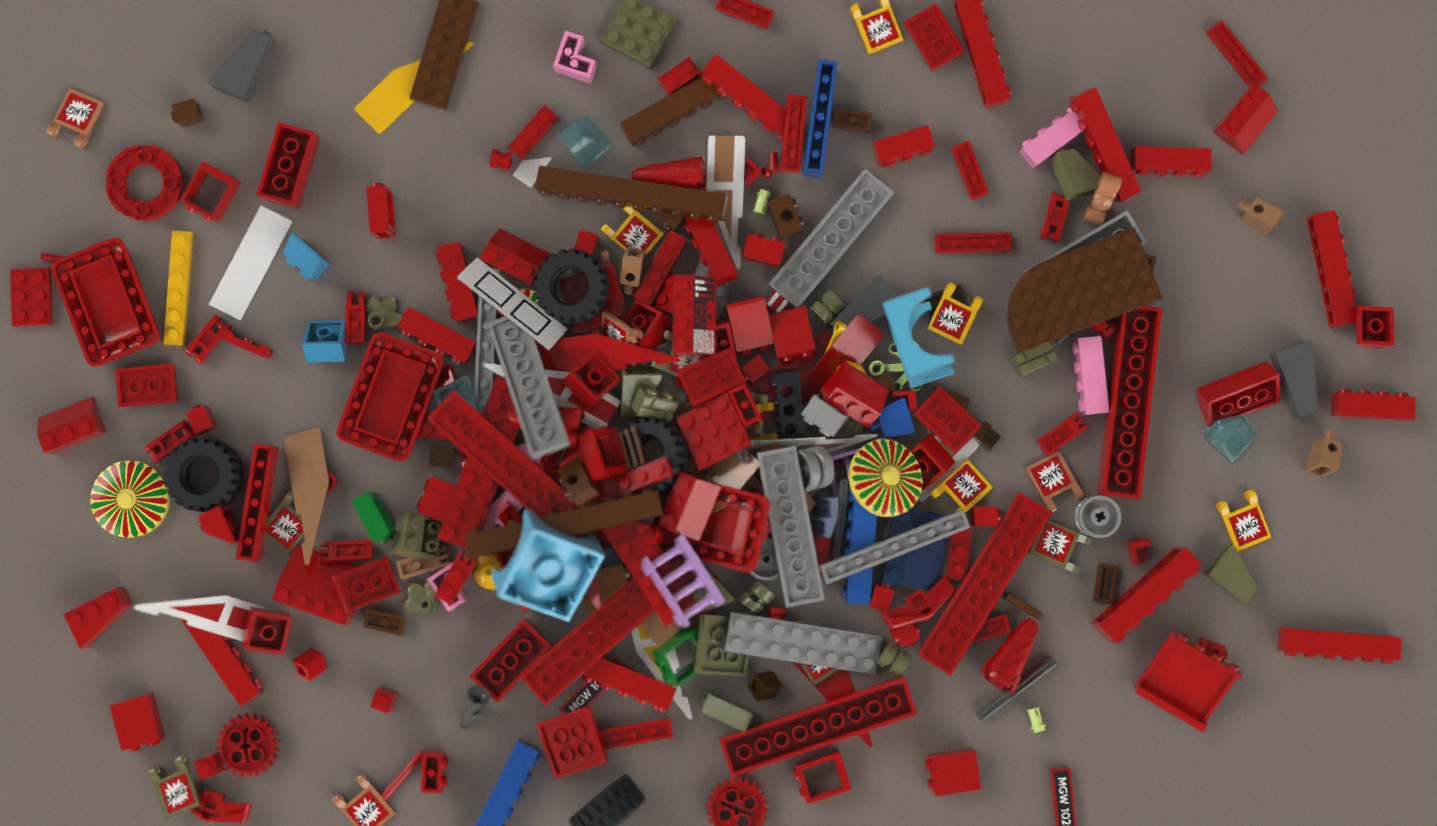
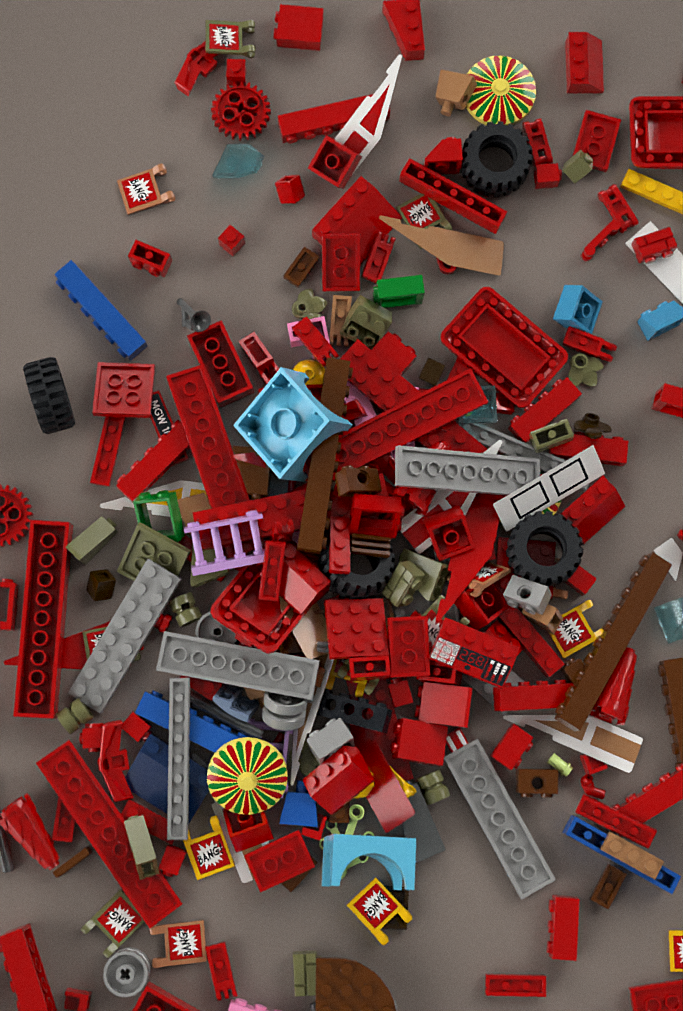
camera: 110 degrees right, 5 degrees down
(147, 542) = (454, 90): none -> medium nougat torso
(180, 392) = (578, 166): none -> olive brick
(233, 291) = (654, 245): none -> red brick
(302, 726) = (238, 161): none -> clear light blue slope
(402, 775) = (158, 232): red bar -> none
(435, 286) = (592, 426): none -> dark brown plate
(461, 319) = (551, 436): none -> olive brick
(491, 623) = (259, 357): none -> red slope
(615, 295) = (519, 587): none -> light grey brick
(691, 529) = (272, 570): none -> red tile
(818, 108) = (632, 855): none -> medium nougat plate
(973, 243) = (442, 959): red tile -> none
(985, 548) = (141, 846): none -> slope
(986, 436) = (248, 893): dark brown panel -> none
(1104, 586) = (78, 955): reddish brown tile -> none

